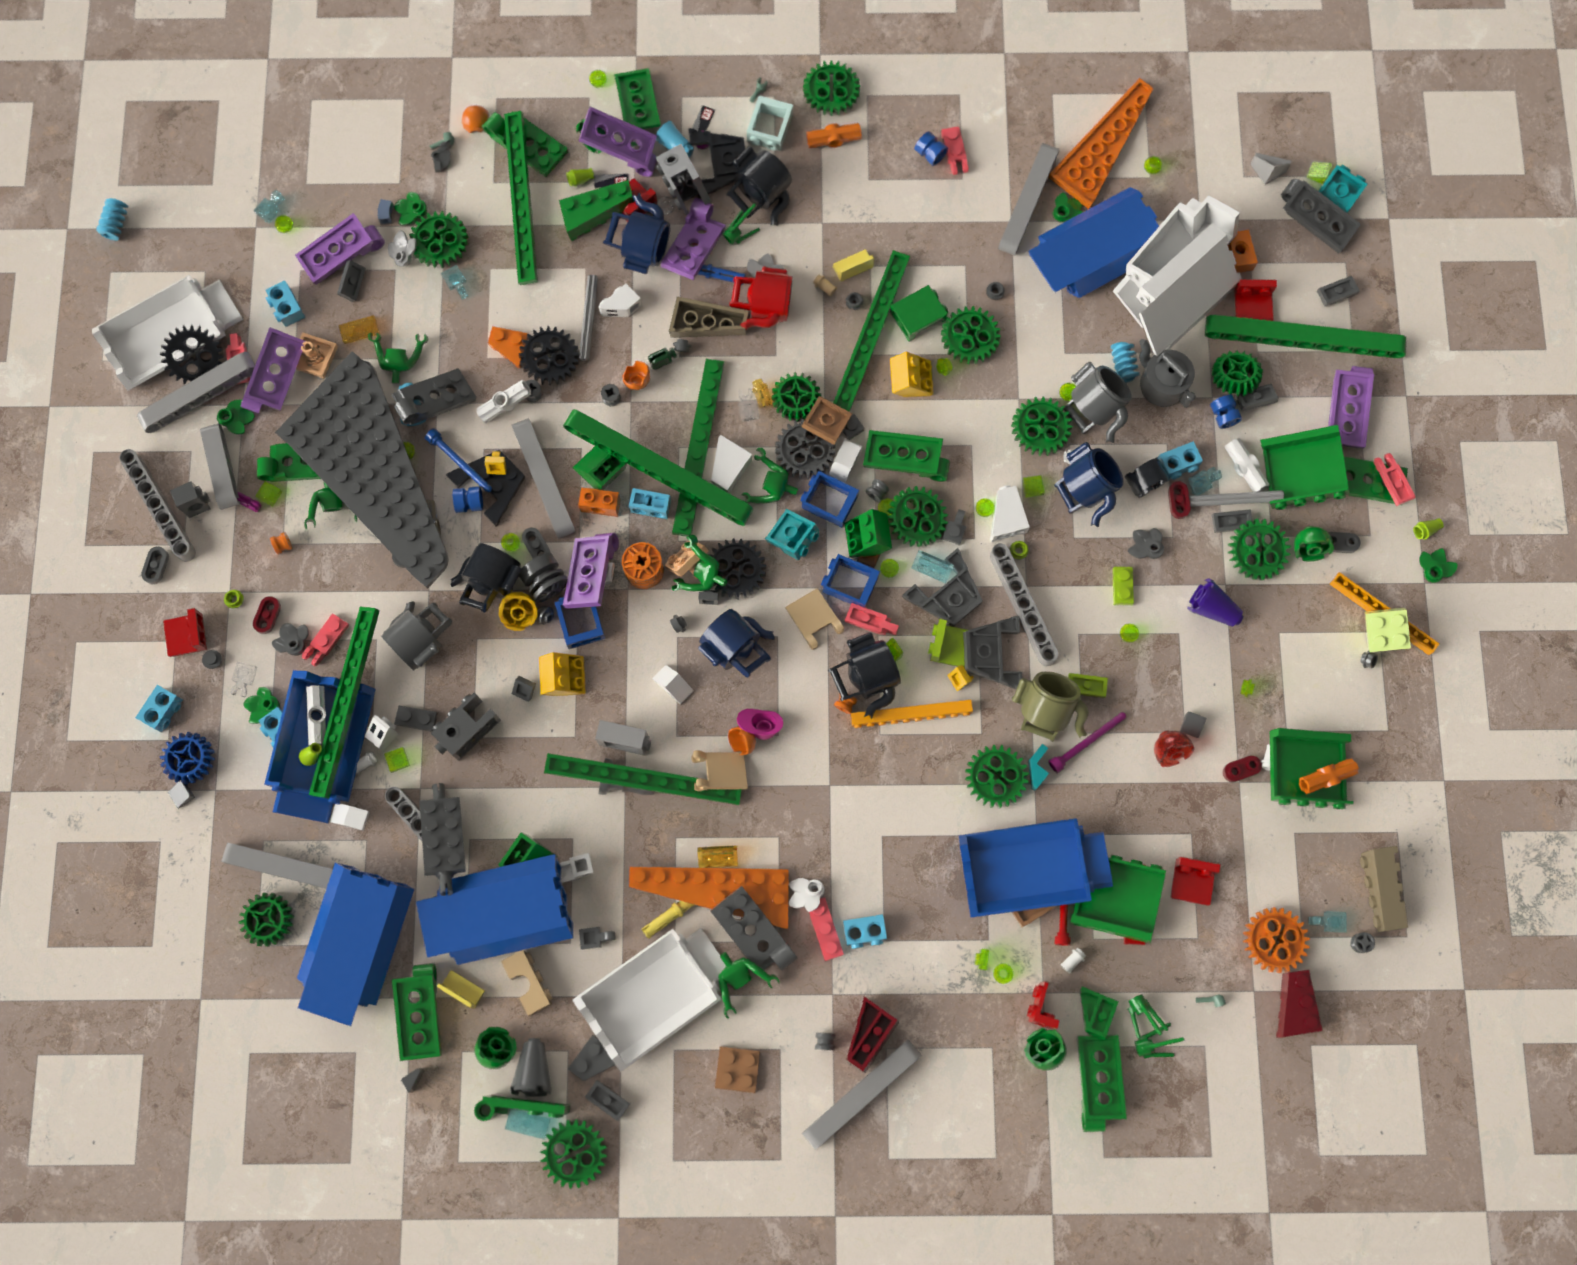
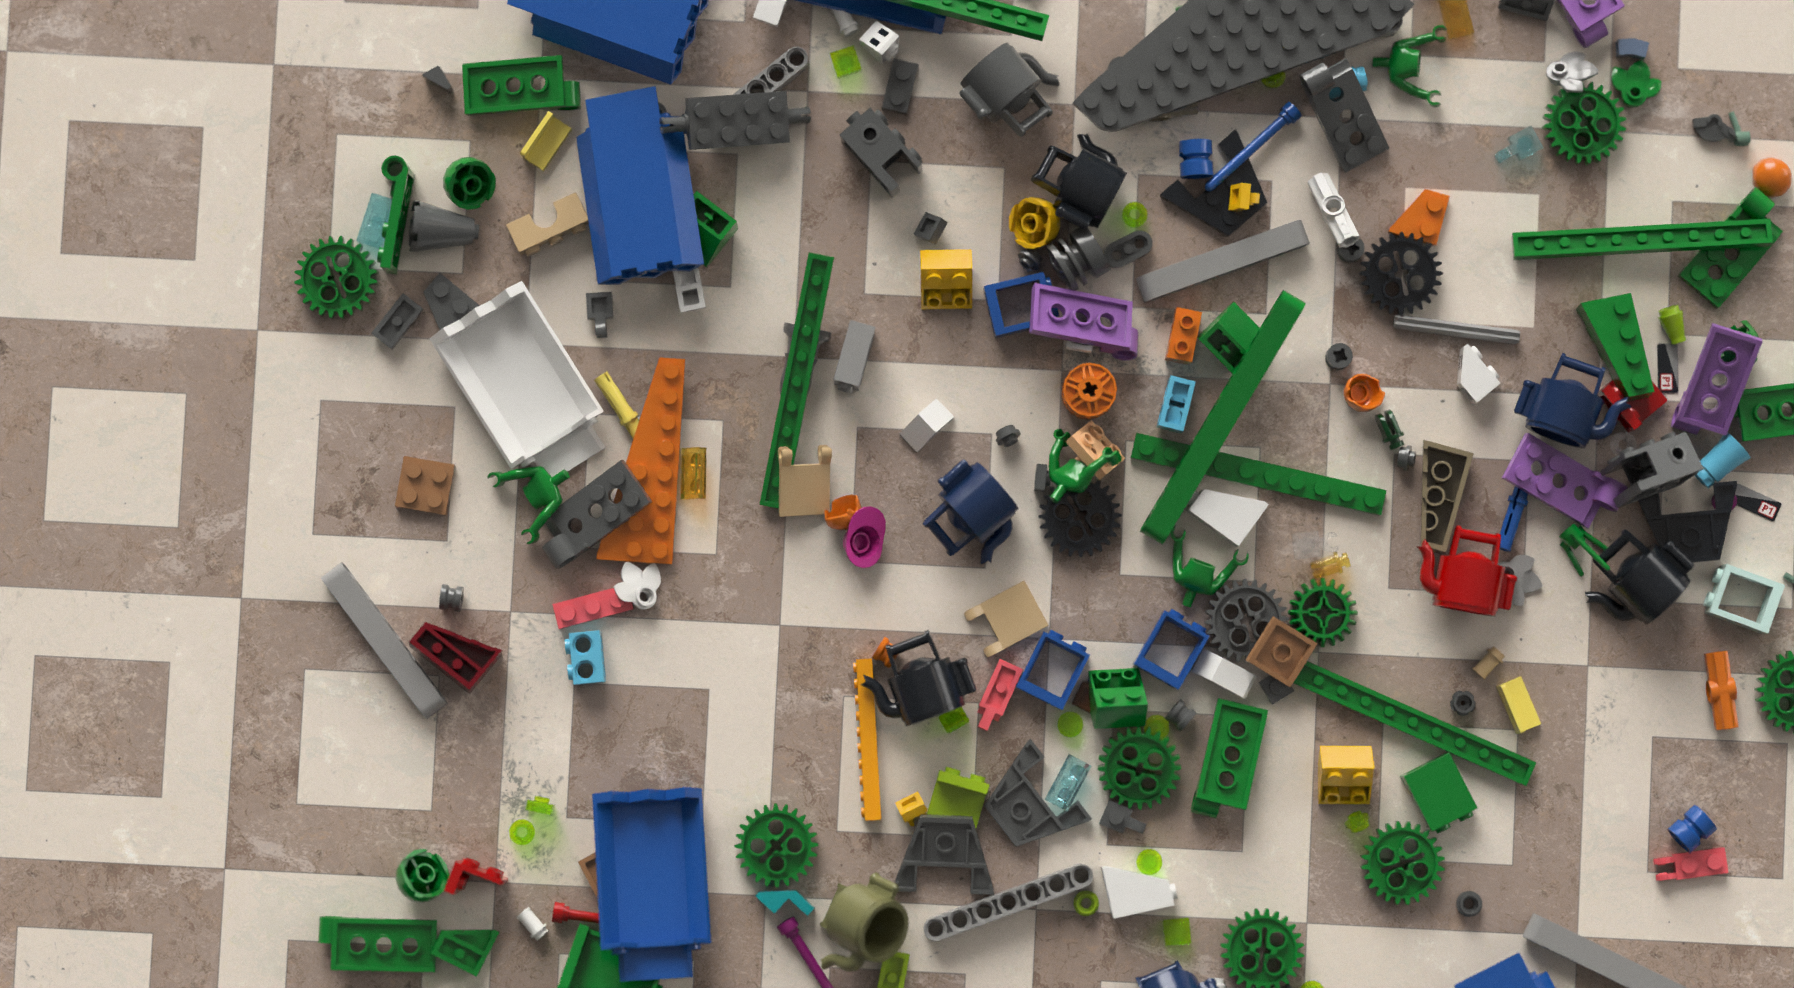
camera: 90 degrees right, 10 degrees up
(793, 534) = (1123, 596): teal plate -> none

